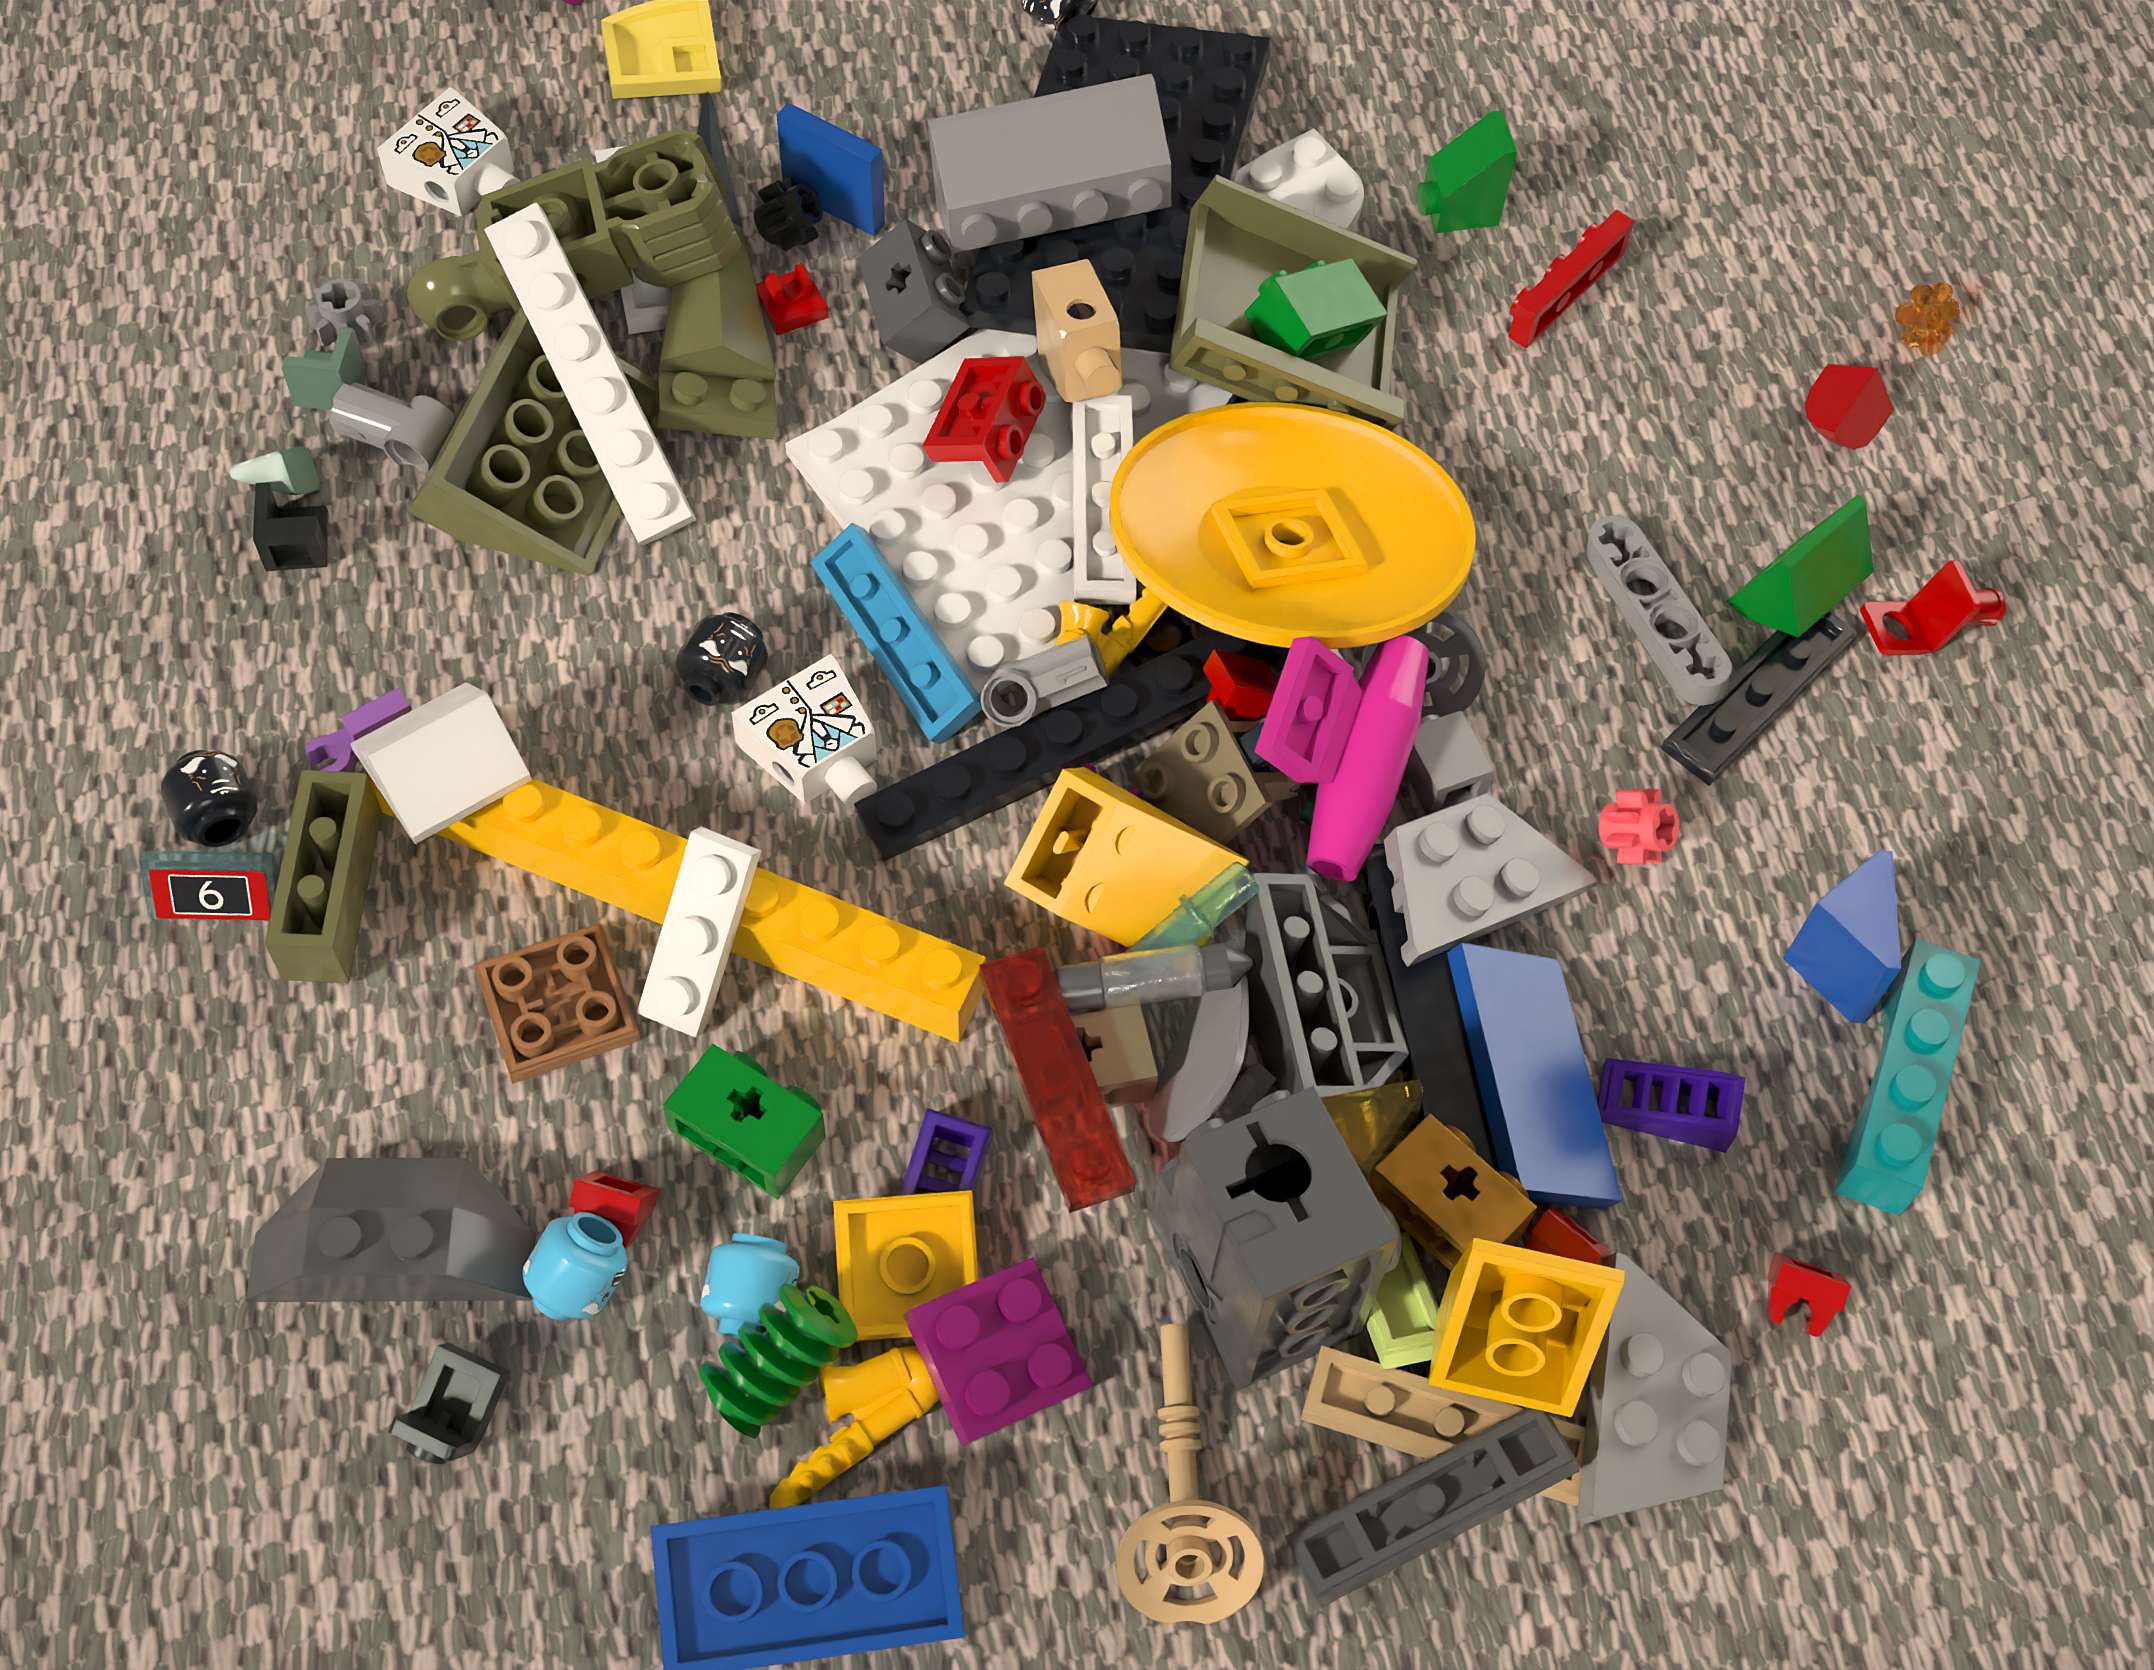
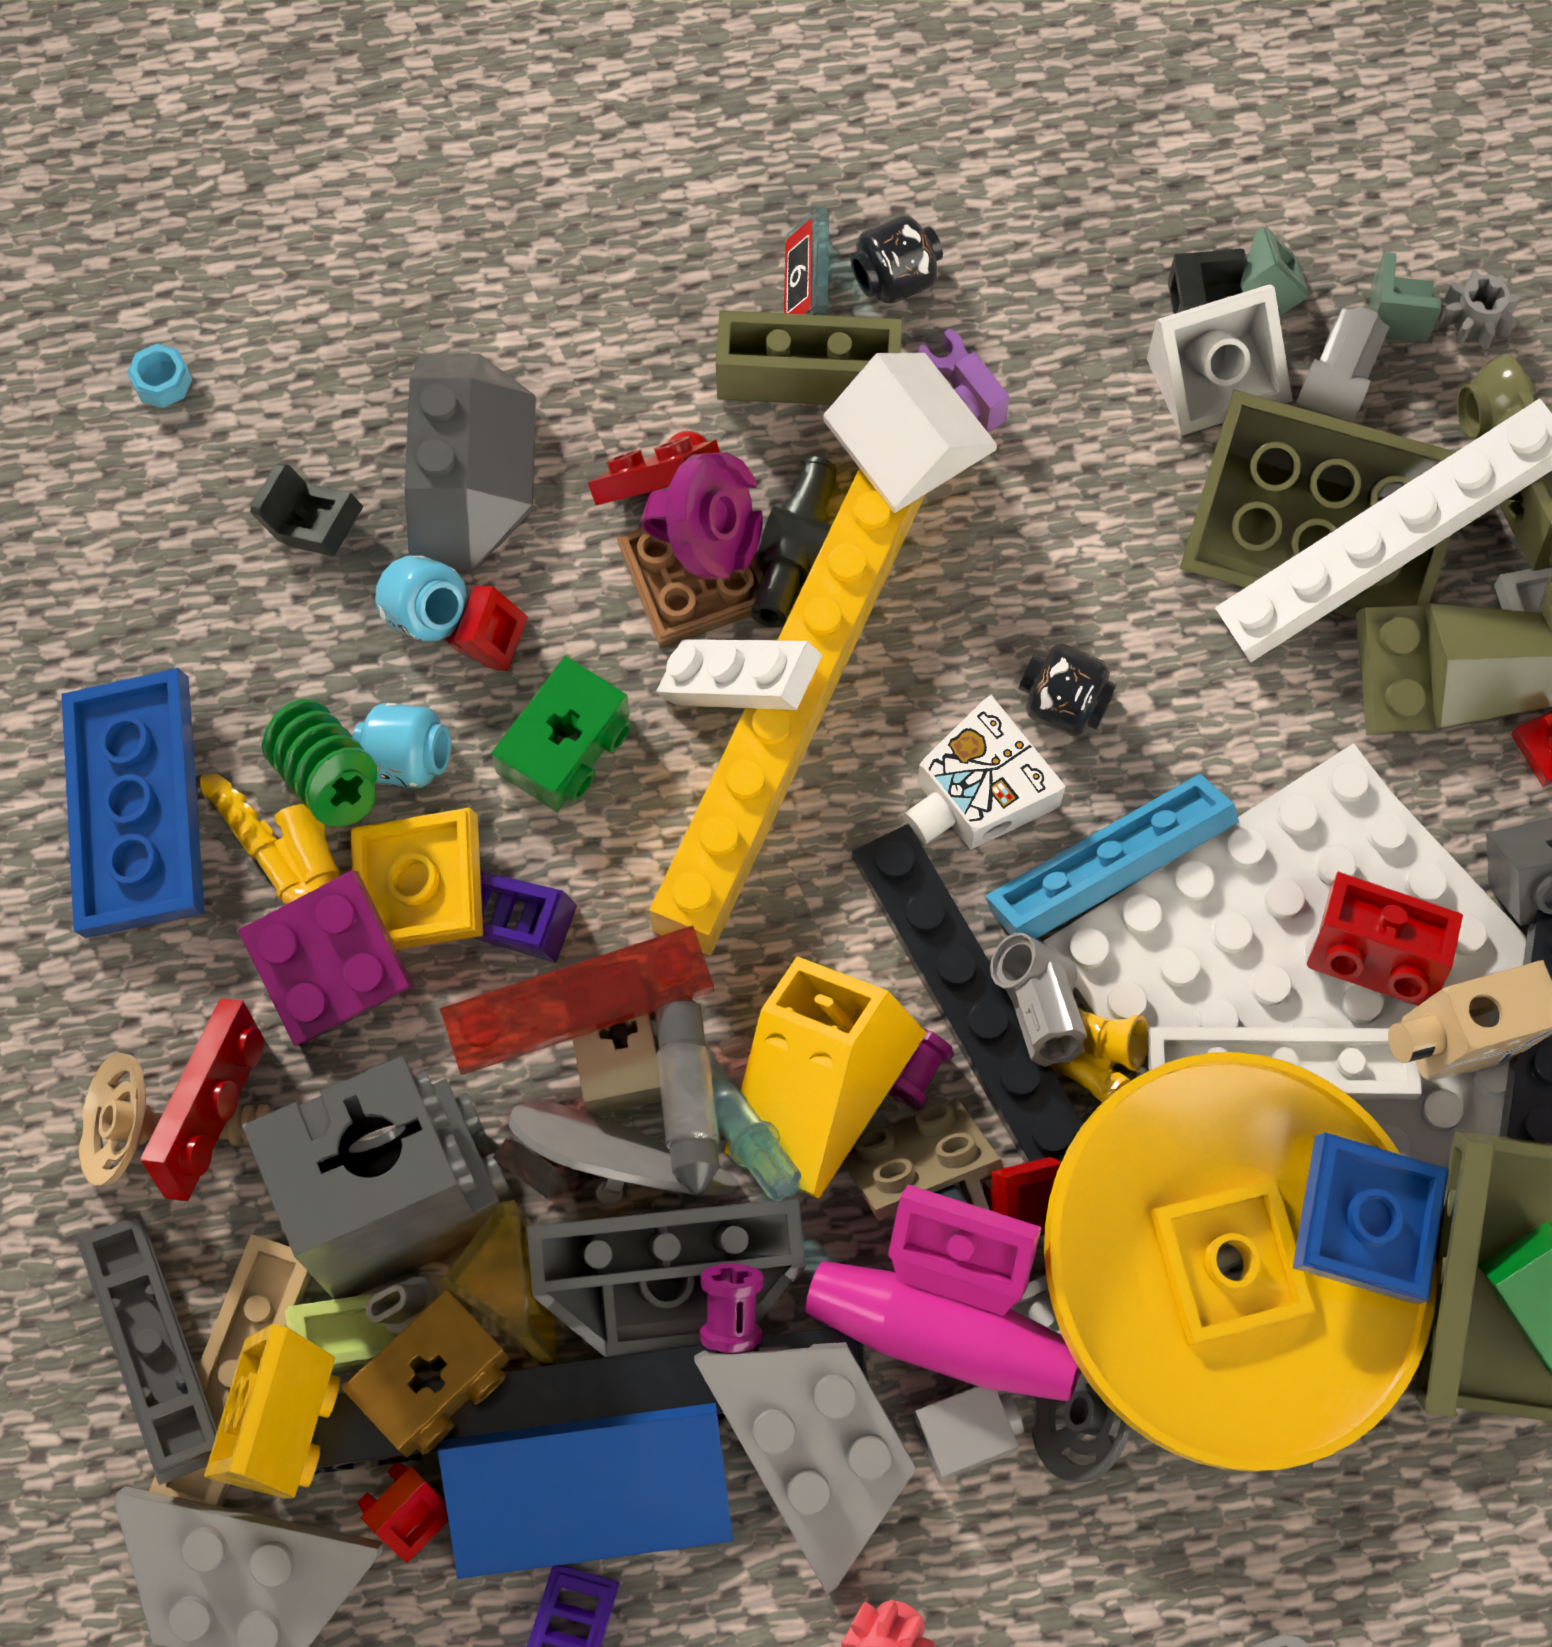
camera: 95 degrees right, 10 degrees up
(236, 1603) = (159, 375): none -> medium azure tile
(371, 520) = (1217, 350): none -> white slope
(446, 1012) = (633, 475): none -> red plate
(517, 955) = (707, 515): none -> magenta tile
(536, 898) = (793, 541): none -> pearl dark grey pin
(1168, 1450) = (203, 1100): none -> red plate
(1248, 432) = (1371, 1218): none -> blue tile
(1354, 923) = (731, 1308): none -> magenta bush

